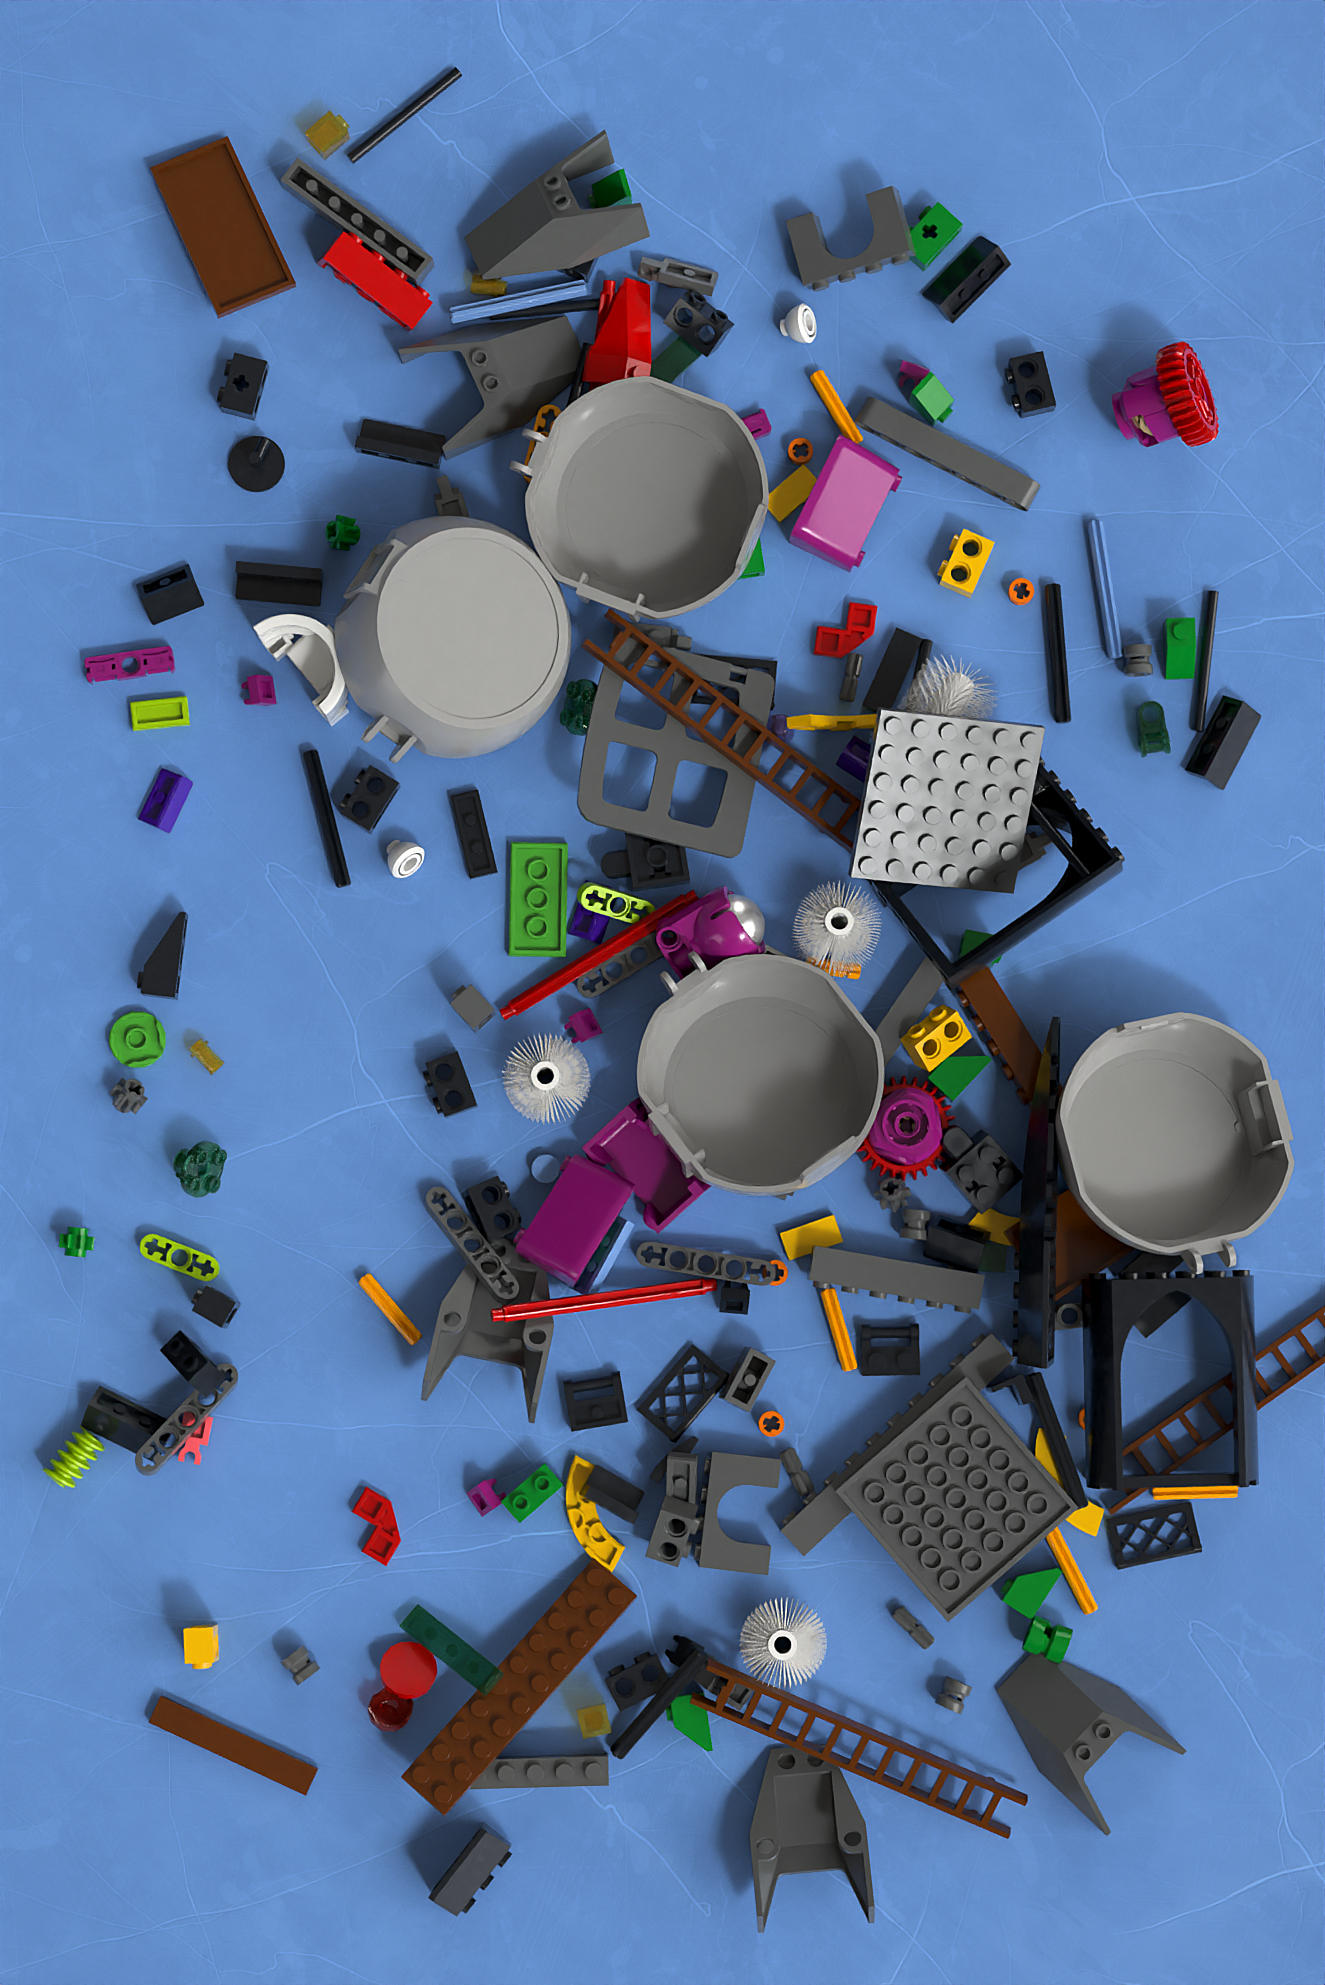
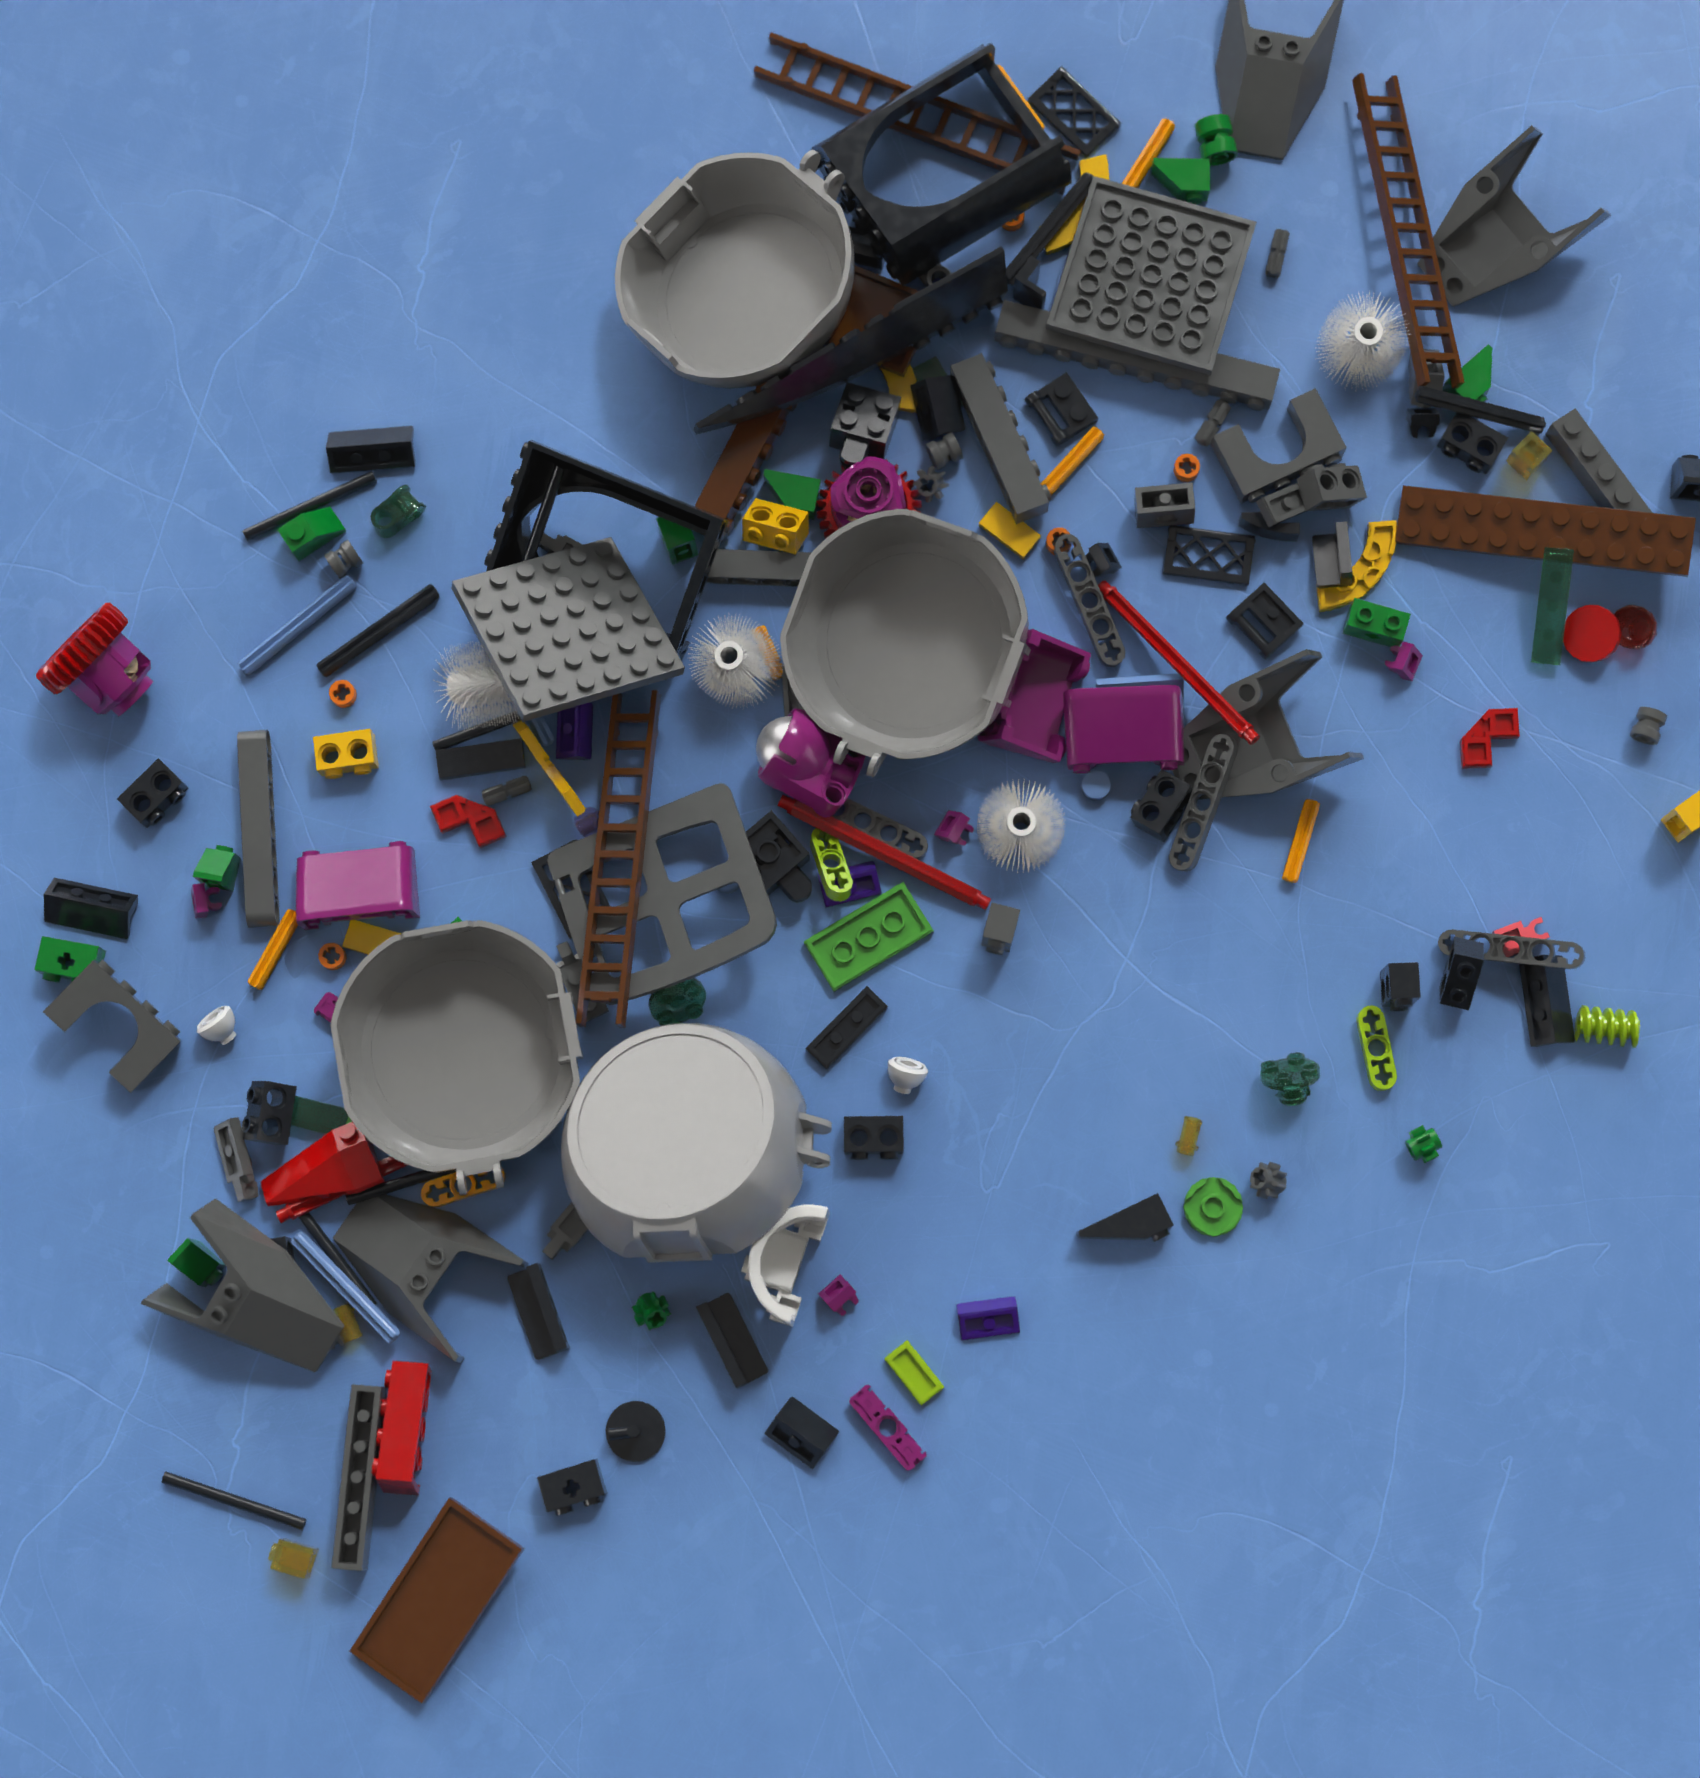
camera: 115 degrees left, 5 degrees down
(327, 818) = (914, 1164): black axle -> none
(456, 1083) = (1072, 904): black brick -> none
(957, 1689) = (1310, 187): dark grey wheel -> none

